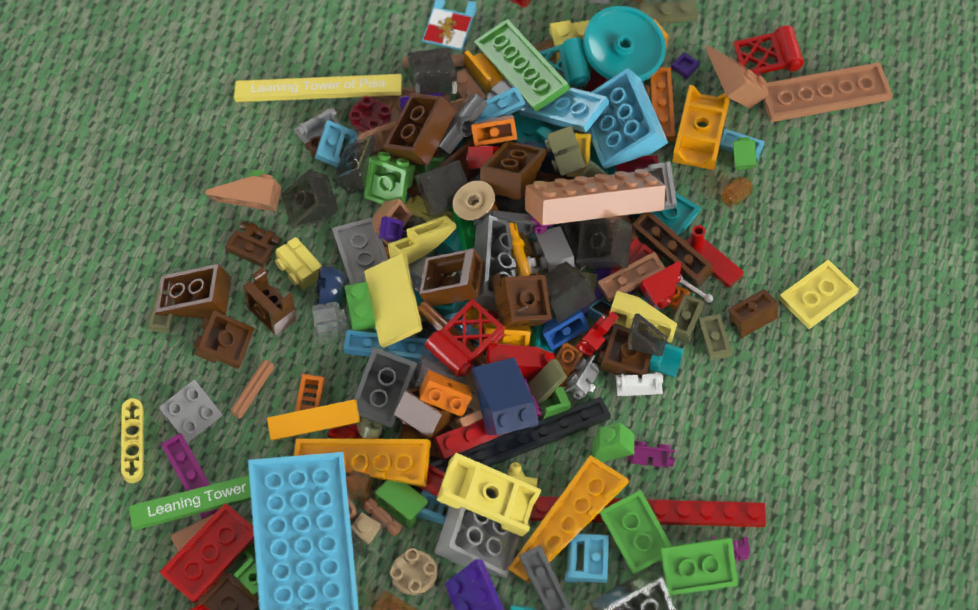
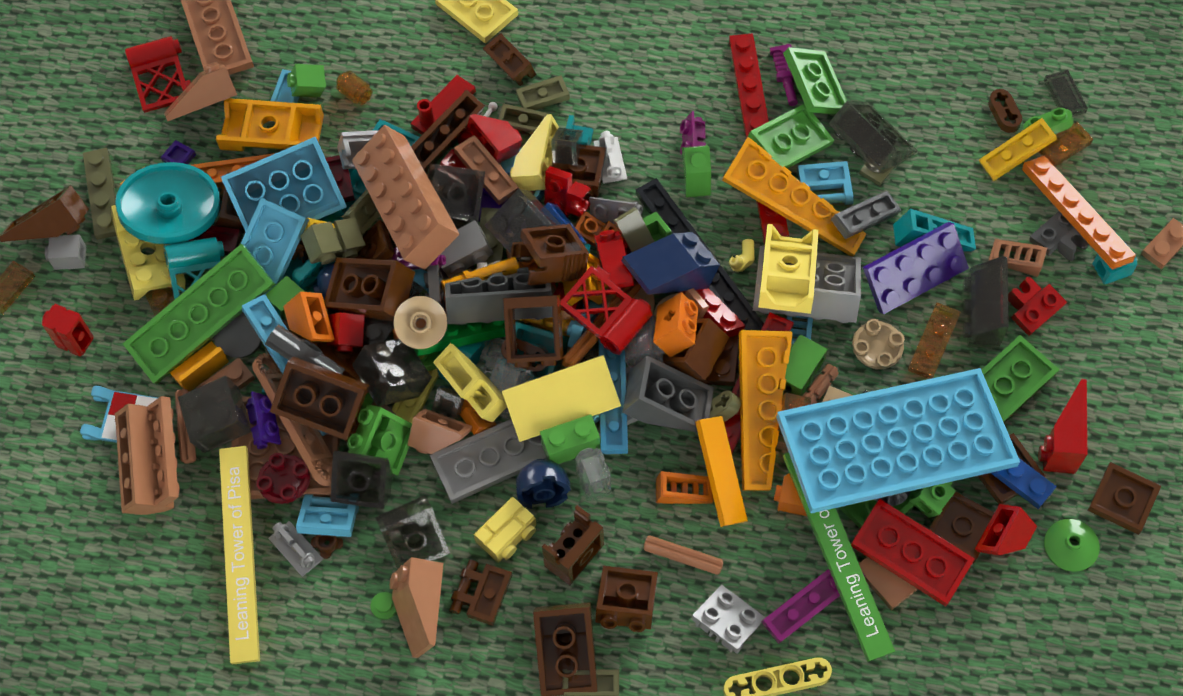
camera: 95 degrees left, 5 degrees up
(391, 229) = (457, 421): dark purple tile -> none
(407, 32) = (147, 457): none -> nougat brick
(526, 123) = (282, 294): none -> bright green panel

